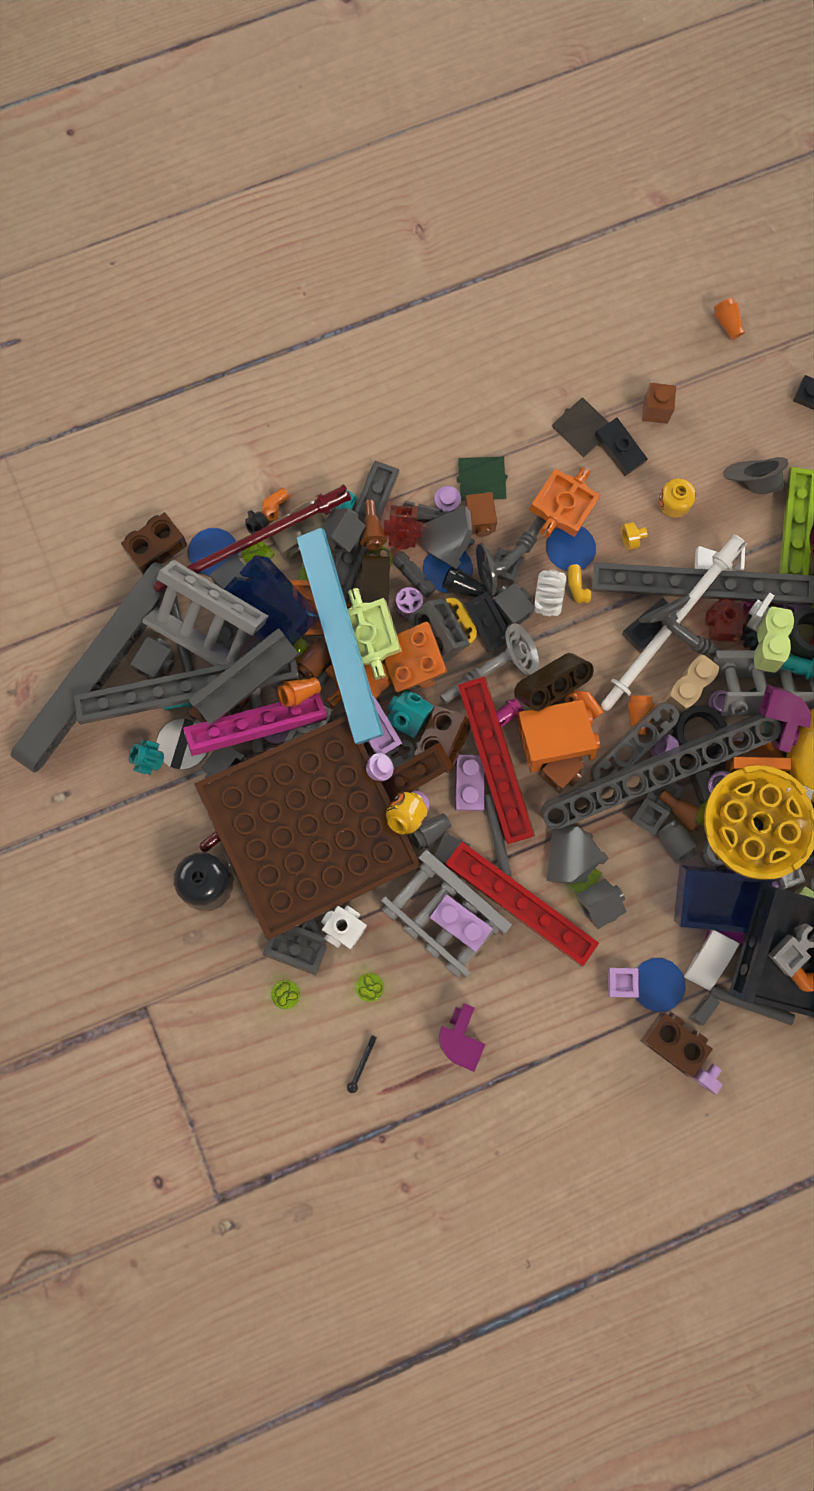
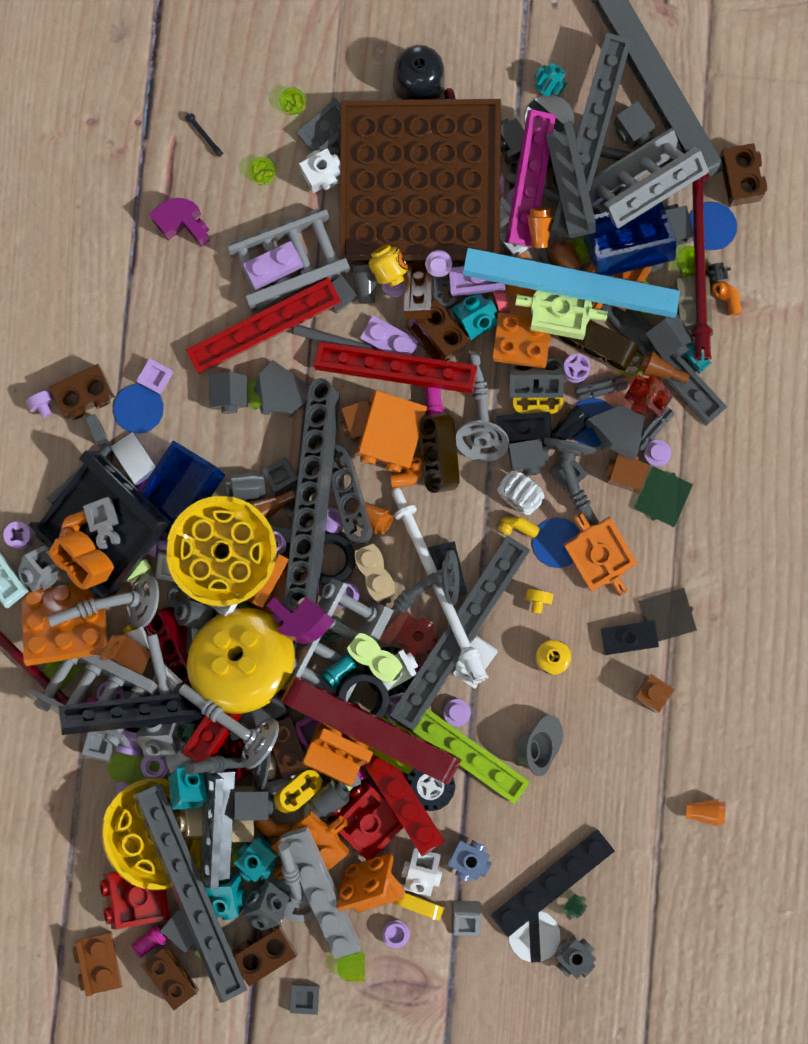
camera: 120 degrees right, 5 degrees up
(385, 696) = (500, 301): none -> coral tile
(767, 557) = (457, 712): none -> lavender plate

